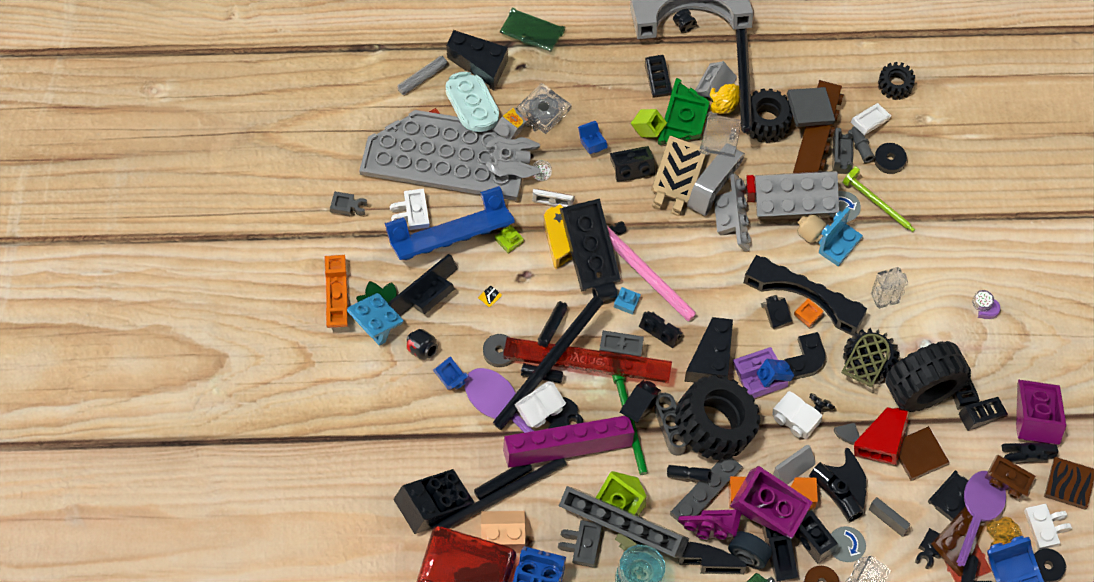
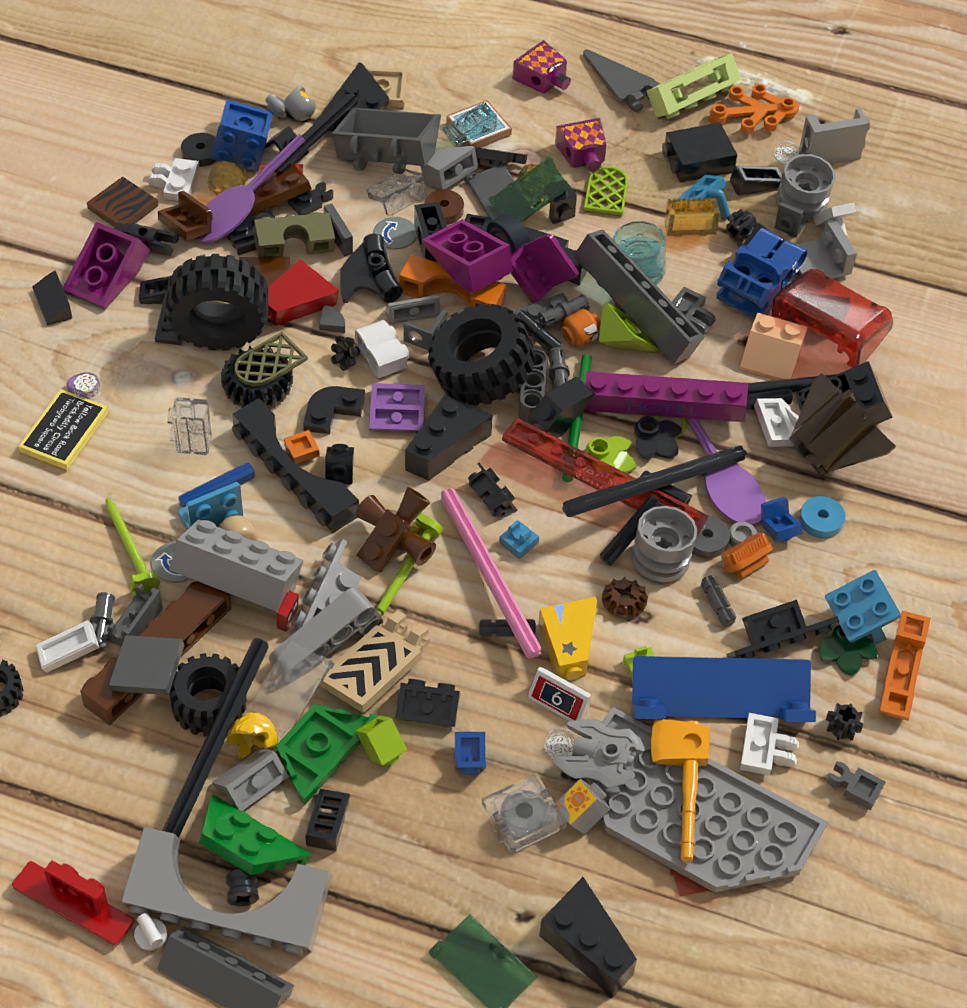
camera: 160 degrees left, 10 degrees down
(369, 237) = (844, 721): none -> black gear
(419, 388) = (818, 526): none -> dark azure piece
(422, 75) = (683, 951): light grey axle -> none
(422, 344) = (807, 567): black head -> none
(431, 446) = (835, 430): none -> dark brown brick
(460, 182) = (686, 746): none -> light orange piece
(466, 339) = (747, 555): none -> orange piece
(472, 102) = (625, 869): light aqua tile -> none
(474, 360) = (740, 531): none -> light grey tile
(474, 462) = (776, 421): none -> white wing
(475, 302) = (718, 600): none -> dark grey axle
(490, 296) = (694, 607): sticker -> none
(525, 305) = (664, 544): none -> light grey wheel
(540, 404) = (681, 443): white brick -> none
(544, 289) = (630, 606): none -> reddish brown gear
(588, 390) = (612, 452): none -> lime plate
(591, 248) = (544, 589): black hinge -> none
(621, 343) = (552, 481): dark grey hinge -> none
(657, 447) = (558, 369): none -> dark grey pin
(658, 490) = (581, 328): none -> orange head
(677, 497) = (562, 310): none -> dark grey pin
(690, 282) = (430, 530): none -> lime piece
(696, 42) = (247, 841): none -> green wing
(710, 262) = (394, 531): none -> reddish brown brick
(768, 437) = (425, 333): none -> dark grey bracket
(774, 370) = (382, 390): blue bracket -> none
(848, 265) = (237, 474): none -> blue axle
(890, 150) = (74, 605): black piece -> none
(907, 503) = (312, 229): none -> olive arch
(977, 268) = (63, 429): none -> black tile
(1058, 372) = (52, 299): none -> black slope

